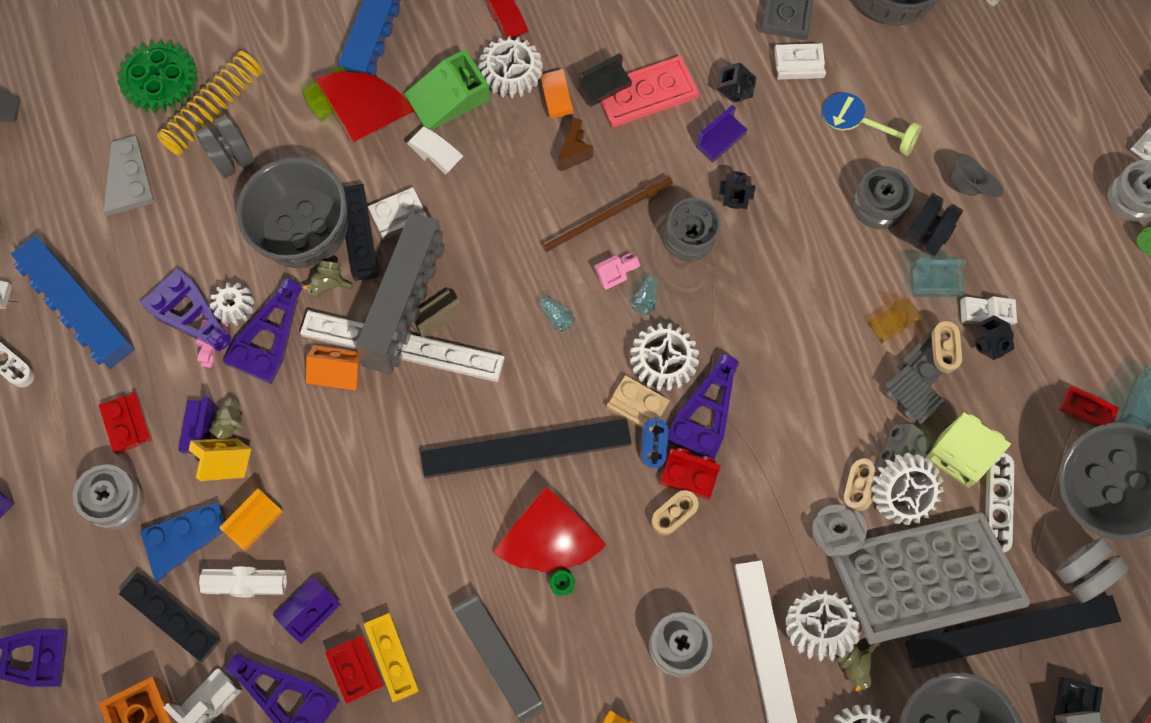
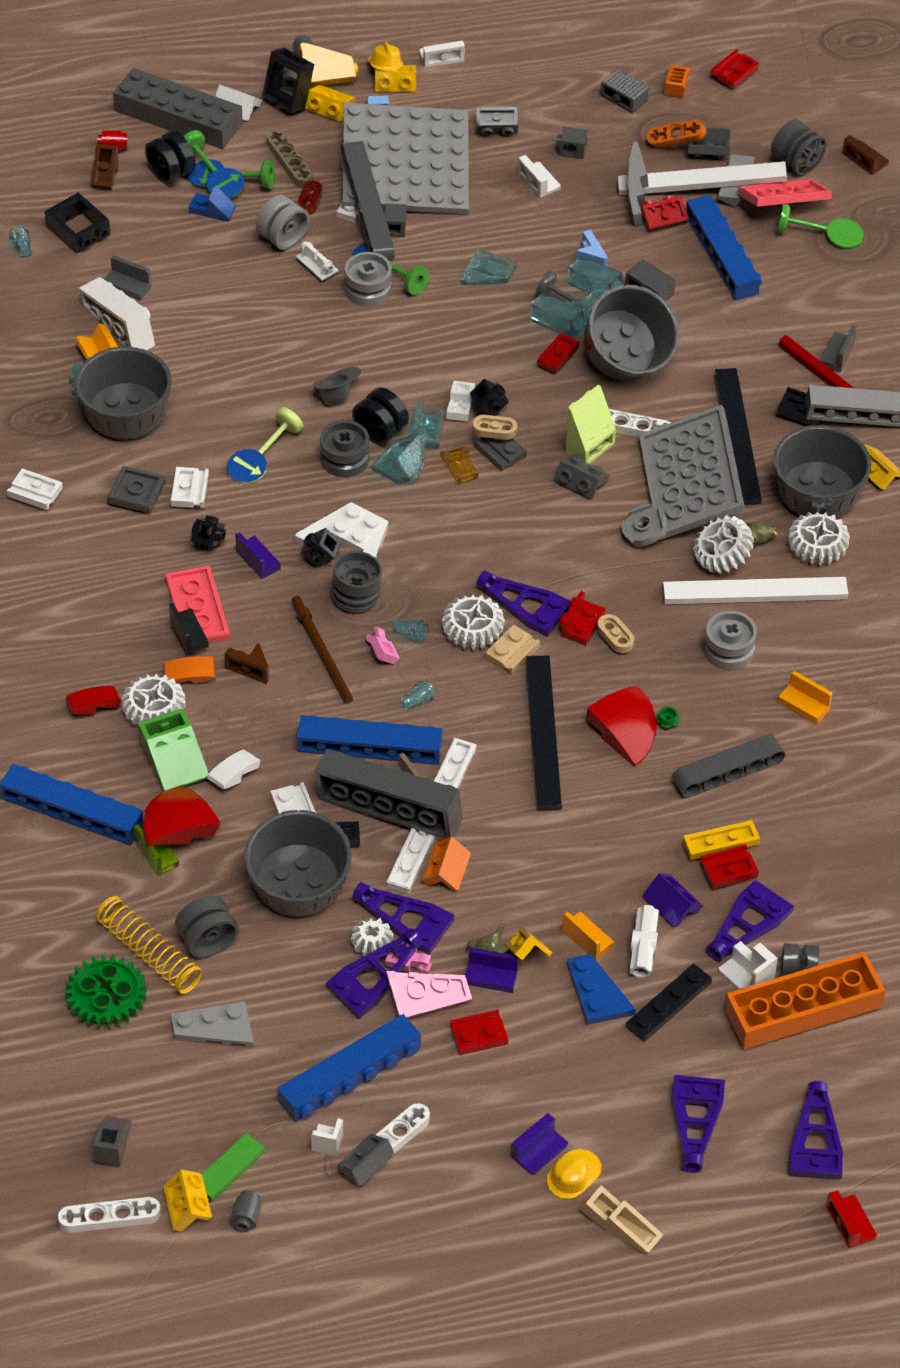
camera: 80 degrees left, 20 degrees down
(108, 497) = (554, 1036): light grey wheel -> none
(163, 363) = (425, 993): none -> bright pink wing
(326, 278) = (361, 865): olive animal -> none
(487, 272) = (370, 739): none -> blue brick
(660, 443) = (552, 638): blue beam -> none
(777, 227) = (353, 527): none -> white wing
(860, 486) = (606, 507): tan plate -> none
(882, 258) = (402, 459): none -> clear light blue slope
(893, 486) = (616, 472): white gear -> none
(914, 394) = (531, 458): dark grey brick -> none
(1095, 574) = (696, 371): light grey wheel -> none

